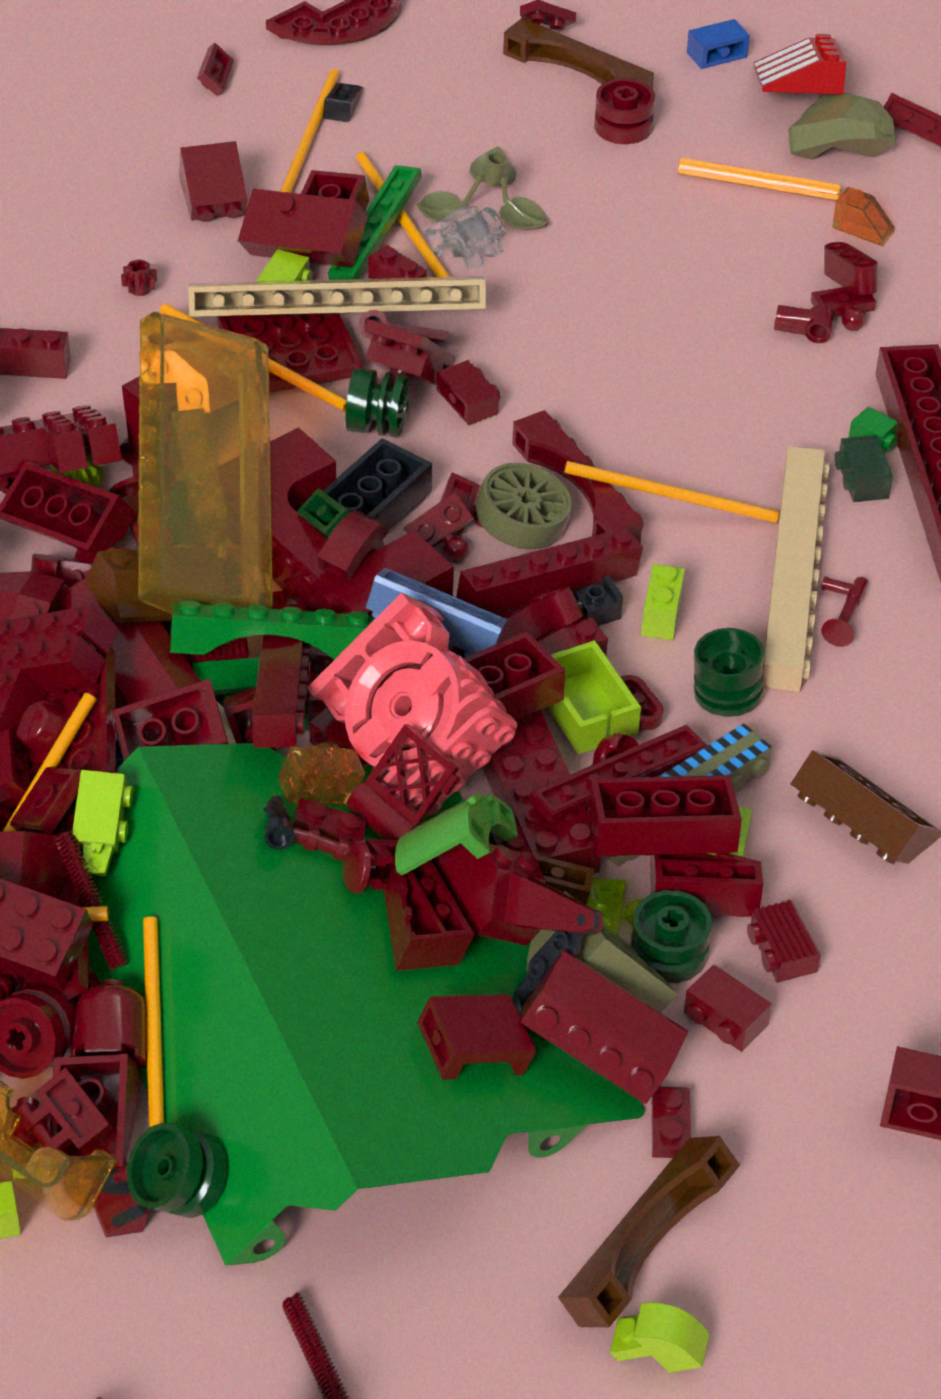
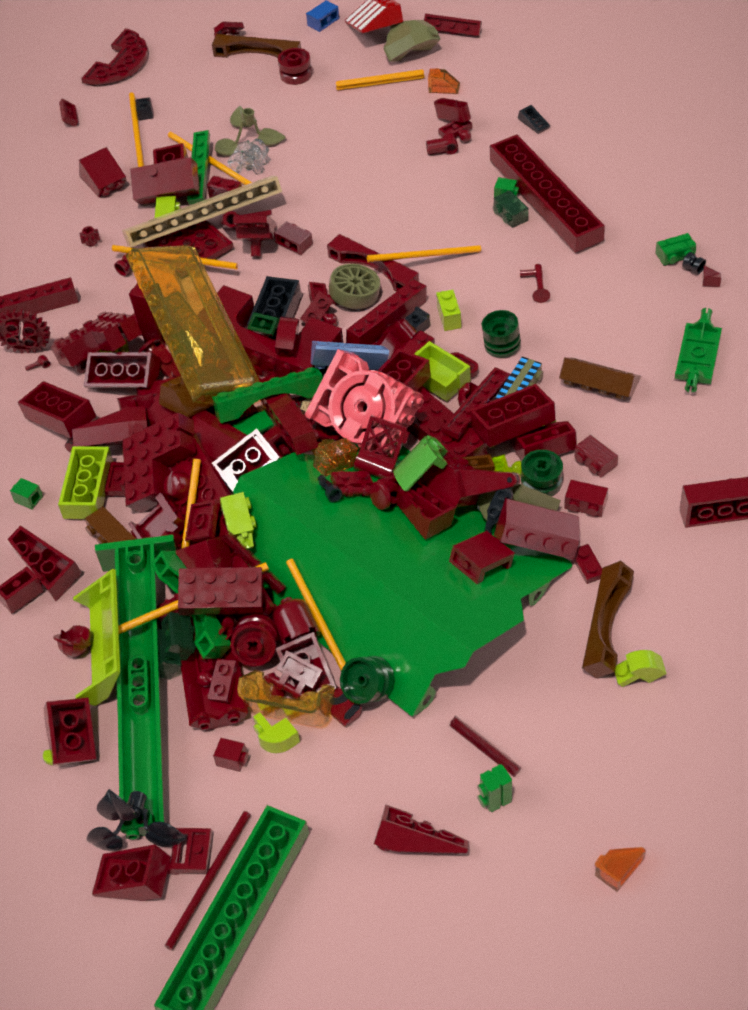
camera: 15 degrees left, 5 degrees up
(377, 402) = (252, 258): dark green wheel -> none
(793, 570) = (502, 269): tan brick -> none

